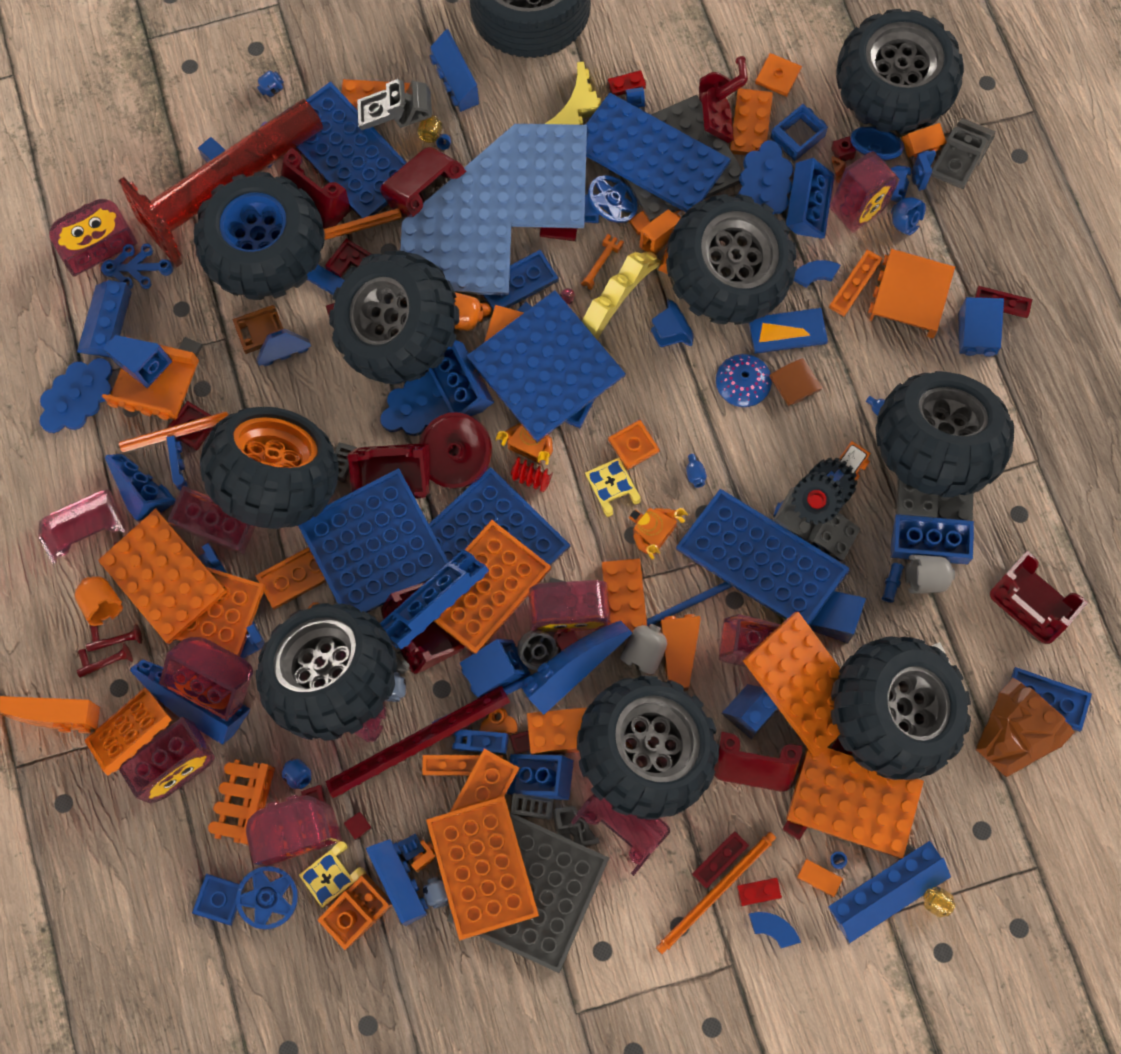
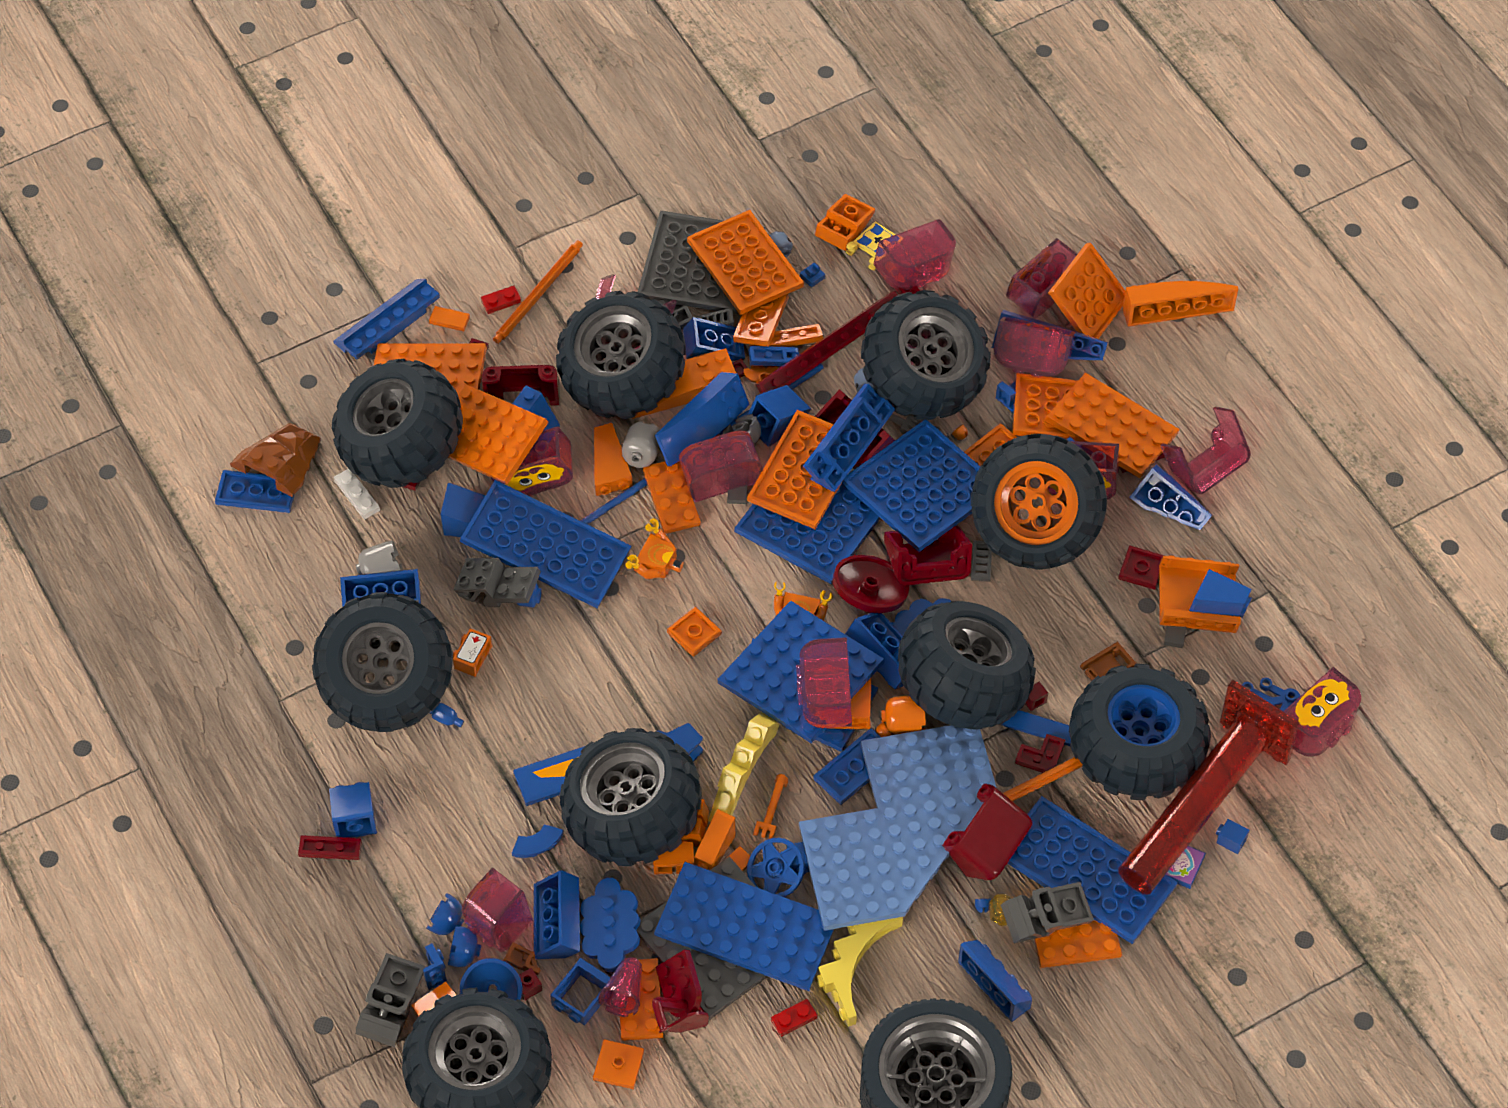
camera: 165 degrees right, 15 degrees down
(75, 395) = (1270, 571): blue plate -> none
(88, 668) = (1120, 364): dark red piece -> none
(97, 600) = (1164, 395): orange cylinder -> none
(97, 644) = (1118, 380): dark red piece -> none
(104, 317) = (1273, 643): blue slope -> none
(176, 431) = (1154, 551): orange axle -> none
(176, 463) = (1141, 526): blue plate -> none
(217, 900) = (965, 211): blue tile -> none
(257, 795) = (959, 284): orange fence -> none
(266, 897) = (922, 211): blue wheel -> none
(270, 83) = (1201, 927): blue head -> none
(281, 345) = (1078, 651): blue slope -> none
(330, 200) = (1082, 794): dark red windscreen -> none
(357, 825) = (864, 281): dark red tile -> none
(396, 881) = (816, 241): blue slope -> none
(423, 860) = (800, 263): orange bracket -> none
(530, 321) = (825, 683): none -> clear pink brick
(531, 475) = (792, 581): red piece -> none
(567, 295) = (799, 762): clear pink hinge -> none
(610, 483) = (709, 594): light yellow flag -> none
(636, 97) = (778, 996): blue tile -> none
(696, 472) = (626, 619): blue plant -> none
(720, 860) = (539, 313): dark red plate -> none
(741, 390) = (591, 727): blue dish -> none
(765, 115) = (623, 990): none -> clear pink cone
(775, 927) = (478, 276): blue tile -> none
(795, 381) = (540, 721): dark orange slope -> none
(824, 490) = (502, 572): black plate -> none
(837, 856) = (432, 328): blue hinge -> none
(855, 283) = (492, 837): orange plate -> none
(892, 582) = (415, 557): blue pin -> none
(912, 290) = (430, 833): orange panel -> none
(939, 902) = (342, 316): clear yellow head -> none
(1034, 601) = (270, 566): dark red windscreen -> none

